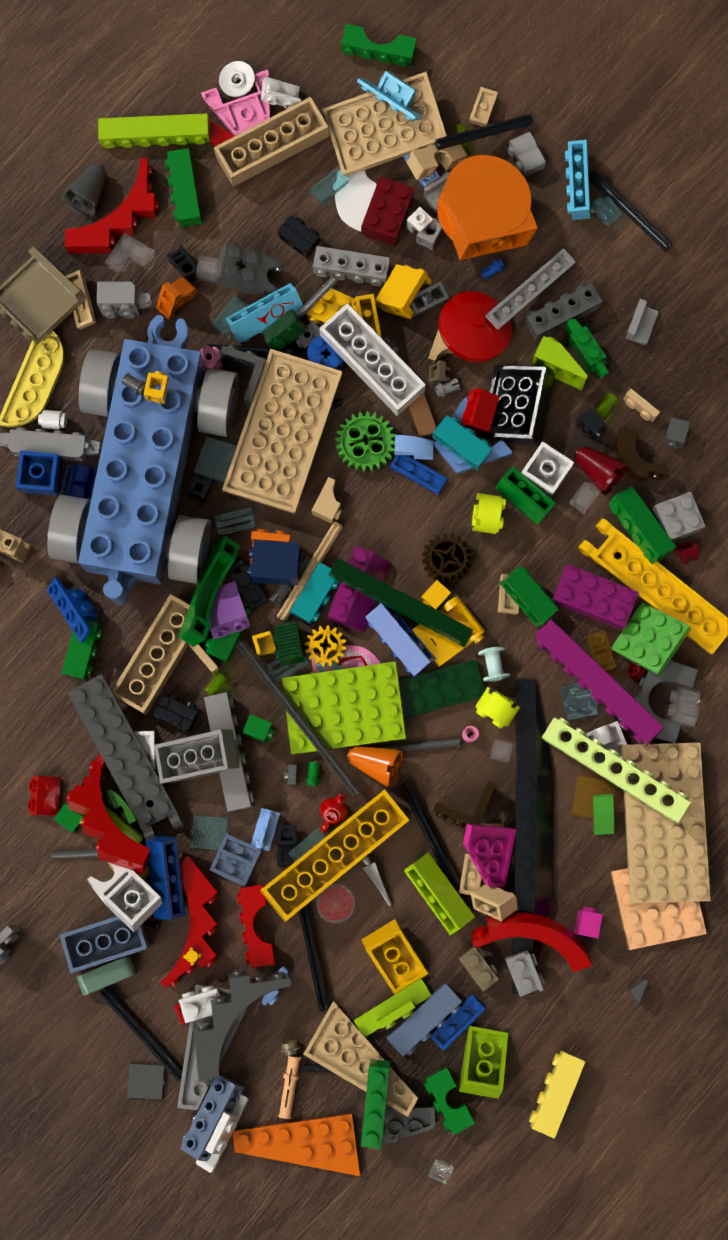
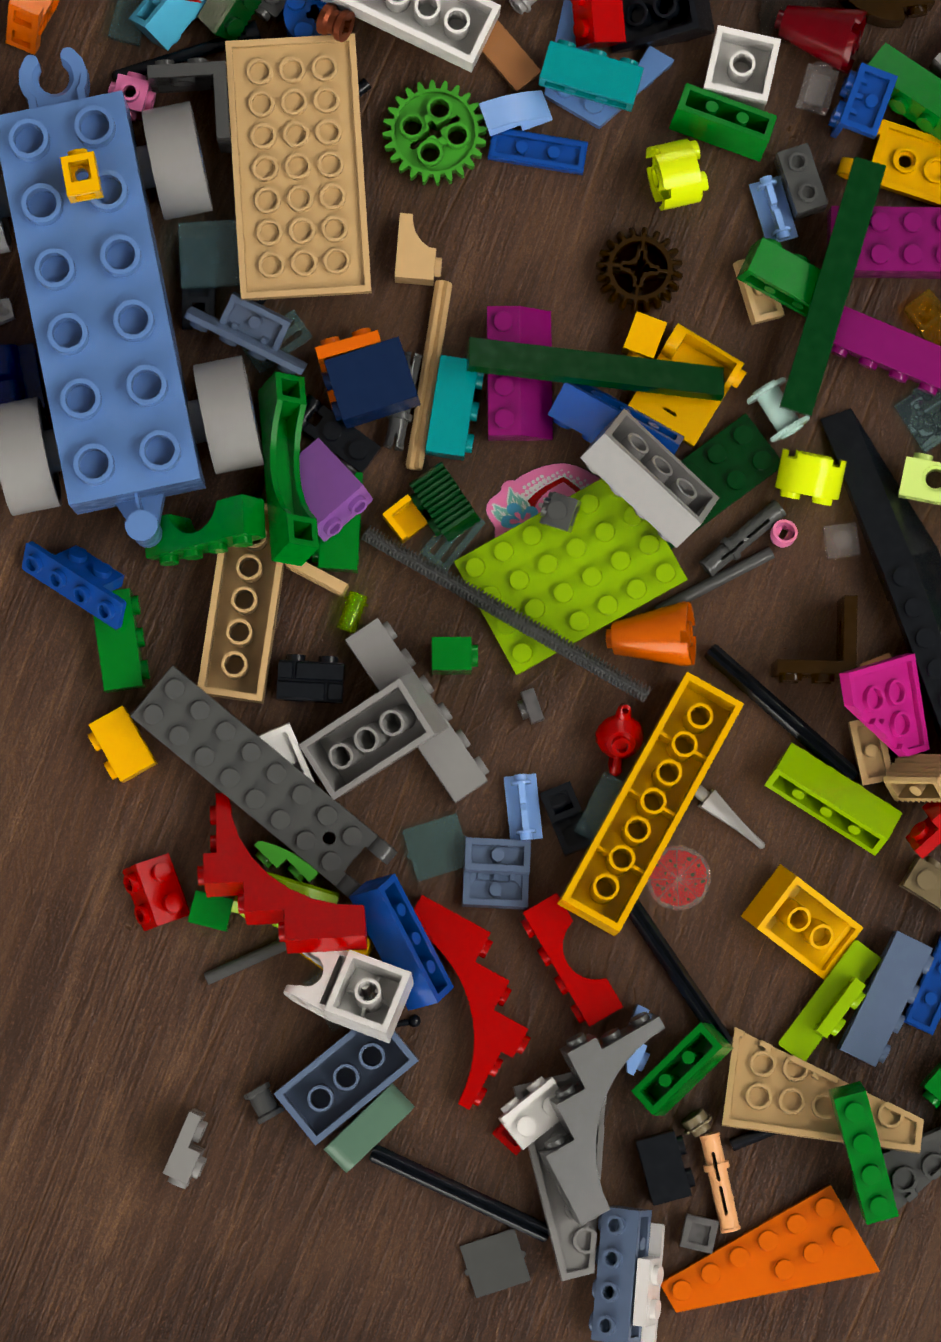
camera: 30 degrees left, 5 degrees up
(53, 937) = (263, 1103): none -> dark grey bush
(59, 707) = (121, 744): none -> yellow brick
(134, 384) = (43, 184): dark grey pin -> none
(166, 608) = (234, 523): none -> green arch
(192, 956) = (492, 1044): yellow piece -> none
(223, 508) = (252, 328): none -> sand blue bracket
(260, 1065) = (664, 1167): none -> black brick
(266, 1111) = (699, 1233): none -> flat silver plate
(292, 1013) = (682, 1069): none -> green brick
(313, 774) = (564, 692): green pin -> none
(317, 646) = (487, 488): yellow gear -> none
(333, 360) = (335, 22): none -> copper wheel
(349, 673) = (559, 511): none -> dark grey brick
(405, 673) = (649, 478): none -> light grey brick
(445, 728) = (732, 547): none -> dark grey pin
(535, 553) = (773, 209): none -> light blue hinge
(549, 607) = (832, 286): none -> dark green tile
(555, 544) = (801, 181): none -> dark grey brick
(609, 511) = (864, 102): none -> blue bracket

